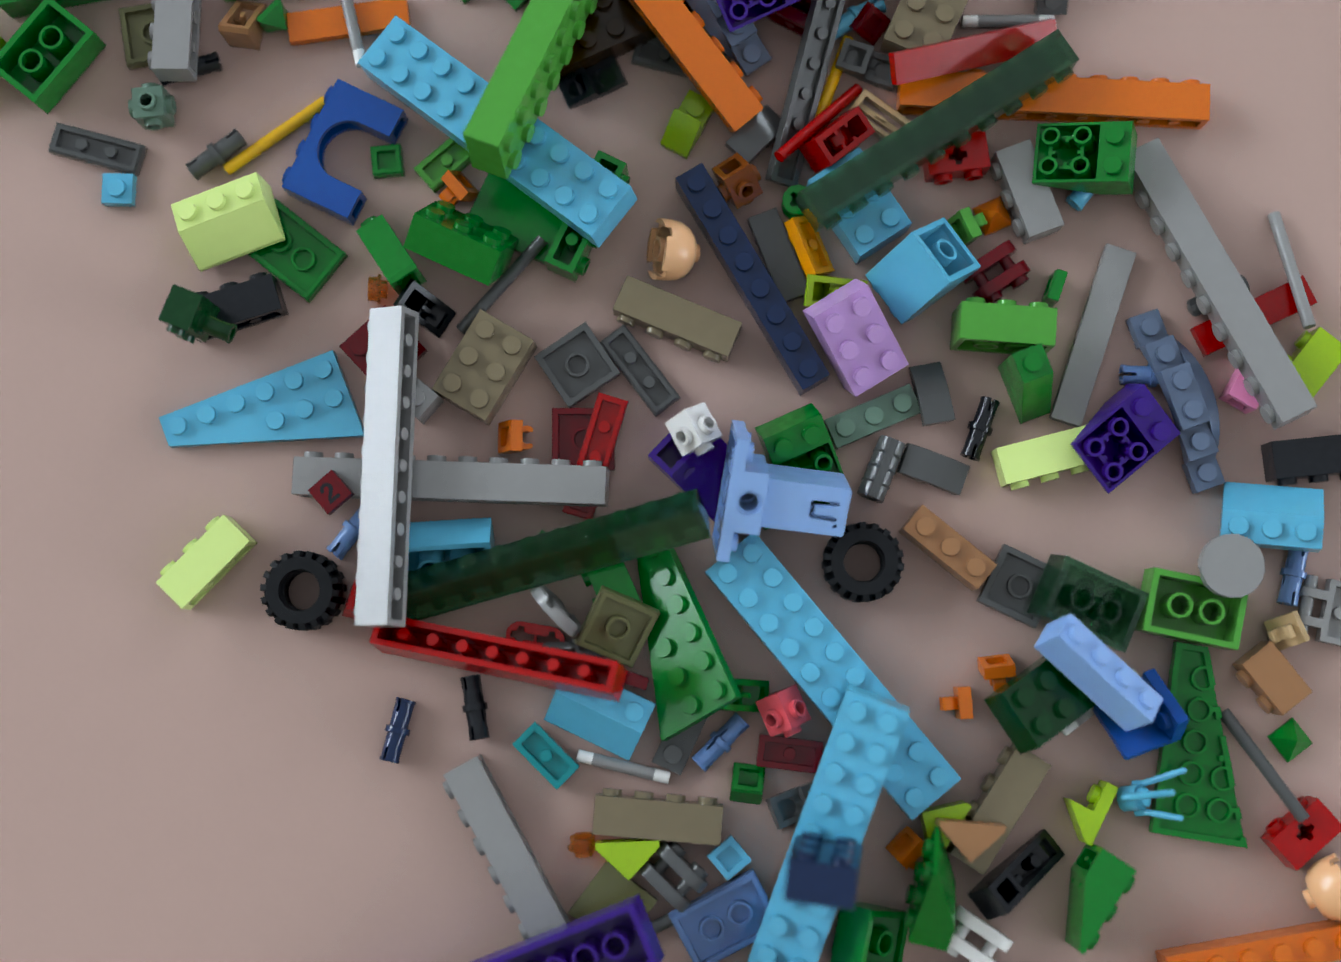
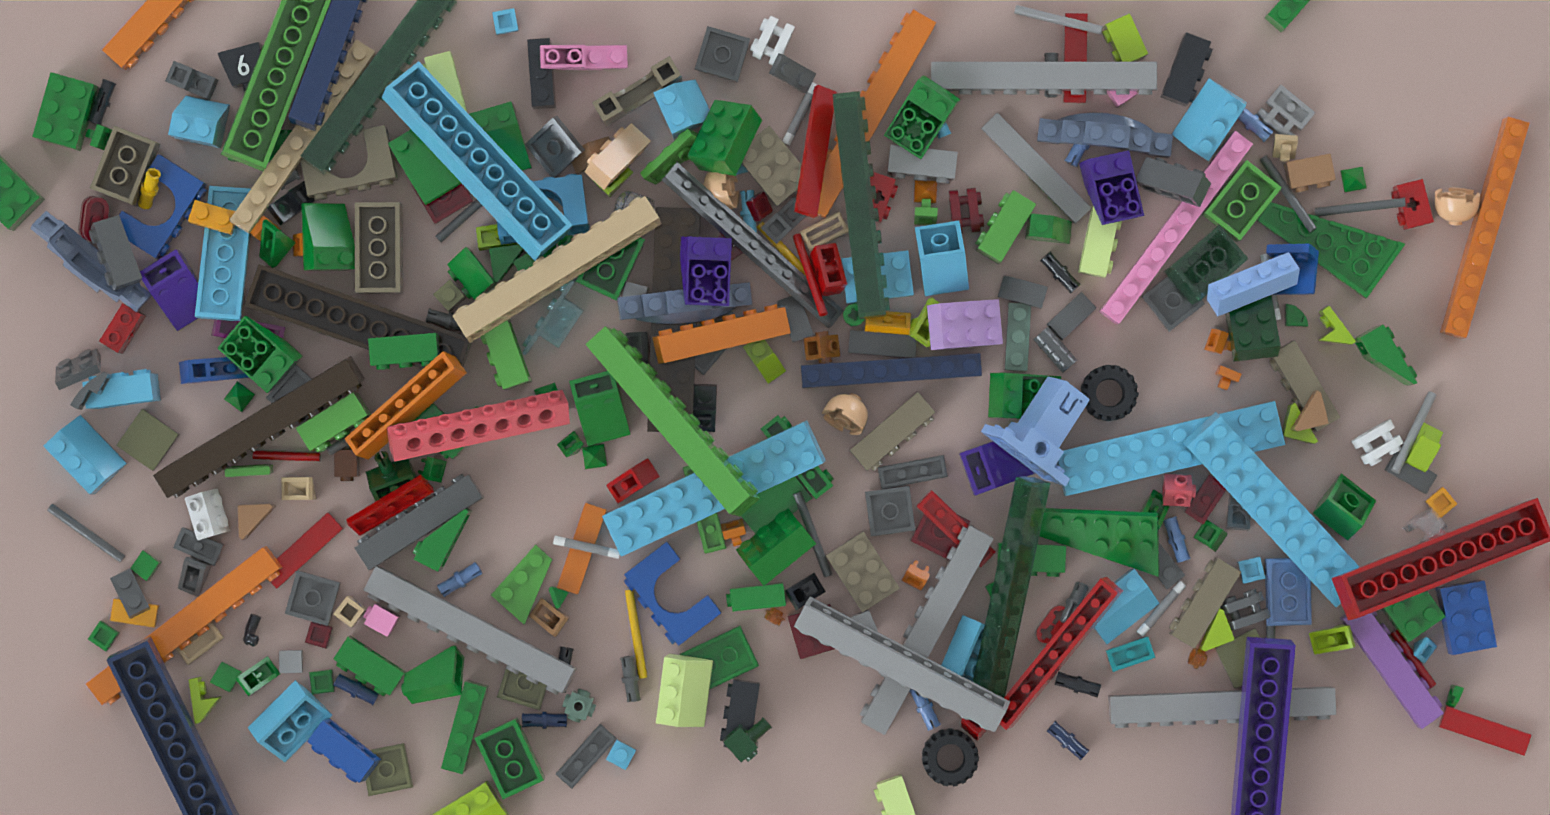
camera: 70 degrees left, 5 degrees up
(115, 75) = (544, 720): none -> dark blue pin
(284, 406) = (821, 712): medium azure wing -> none
(331, 492) = (898, 708): dark red tile -> none
(387, 161) = (690, 568): green tile -> none
(461, 38) = (632, 480): none -> red slope
(556, 610) = (1043, 602): light grey tile -> none
(617, 626) = (1073, 568): olive tile -> none
(636, 680) = (1112, 572): dark red tile -> none
(694, 430) = (977, 459): white brick -> none
(823, 871) = (1289, 517): dark blue brick -> none
(906, 847) = (1300, 455): orange tile -> none
(932, 897) = (1337, 455): green slope -> none
(947, 548) = (1126, 334): medium nougat brick -> none
(1016, 876) = (1351, 396): black slope -> none
(1054, 287) = (993, 178): green tile -> none
(1078, 752) = (1294, 316): none -> green tile
(1085, 538) = (1173, 231): none -> bright pink brick
(1138, 797) = (1341, 295): medium azure plant -> none
(1172, 508) = (1173, 181): none -> dark grey brick
(1229, 666) = (1286, 191): none -> dark grey bar
(1231, 566) = (1228, 165): light grey tile -> none

